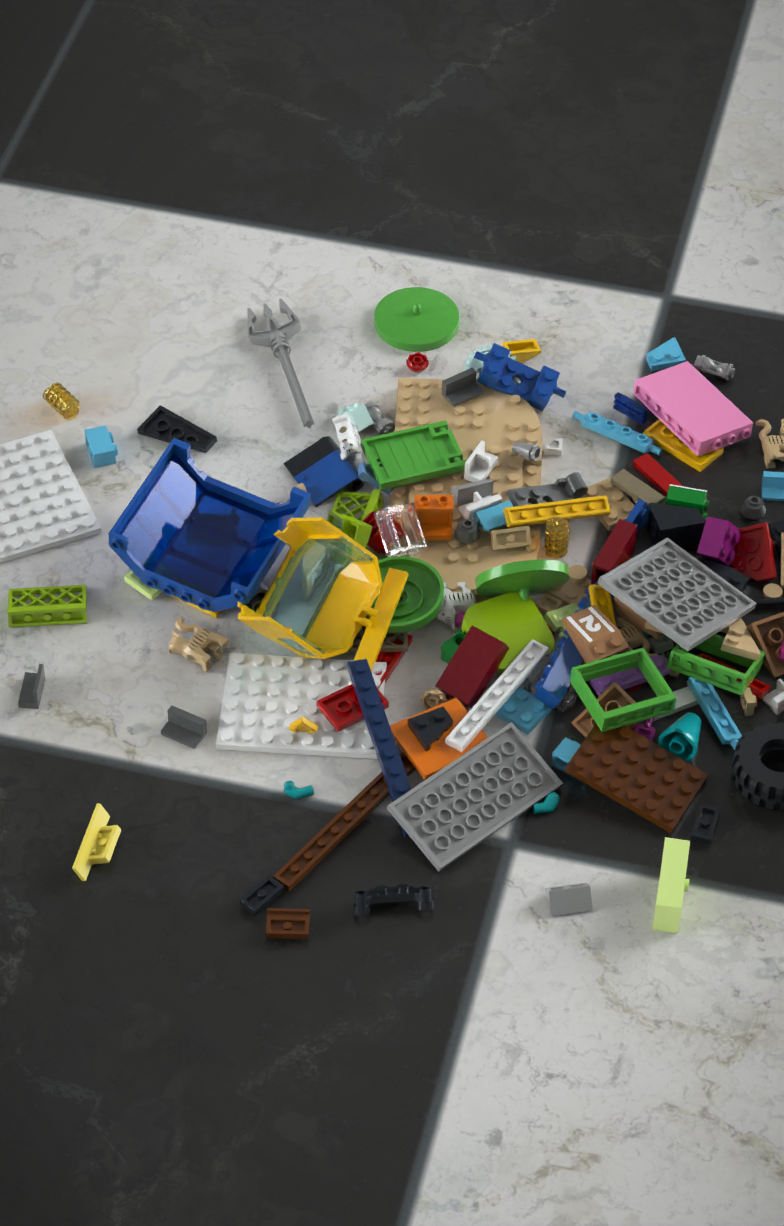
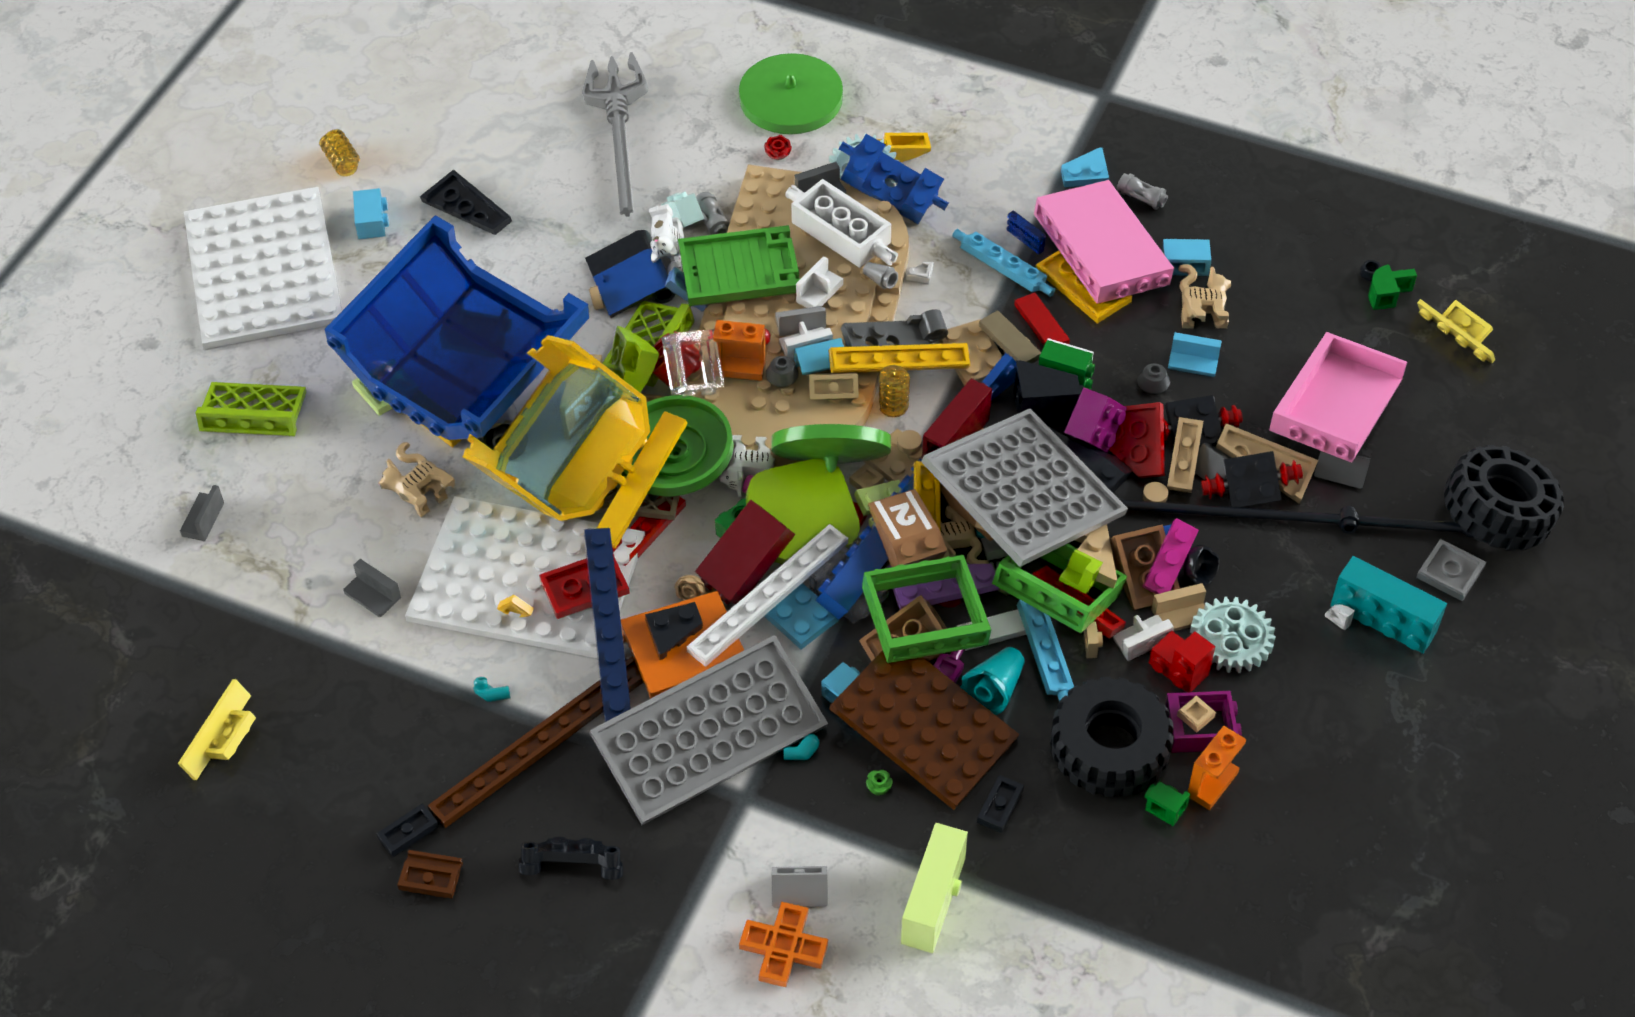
camera: 10 degrees right, 5 degrees up
(487, 414) = (841, 223): none -> white brick
(567, 939) = (783, 944): none -> orange plate
(610, 820) = (879, 788): none -> bright green plate
(733, 650) = (1081, 571): none -> lime panel
(761, 409) = (1190, 252): none -> medium azure brick

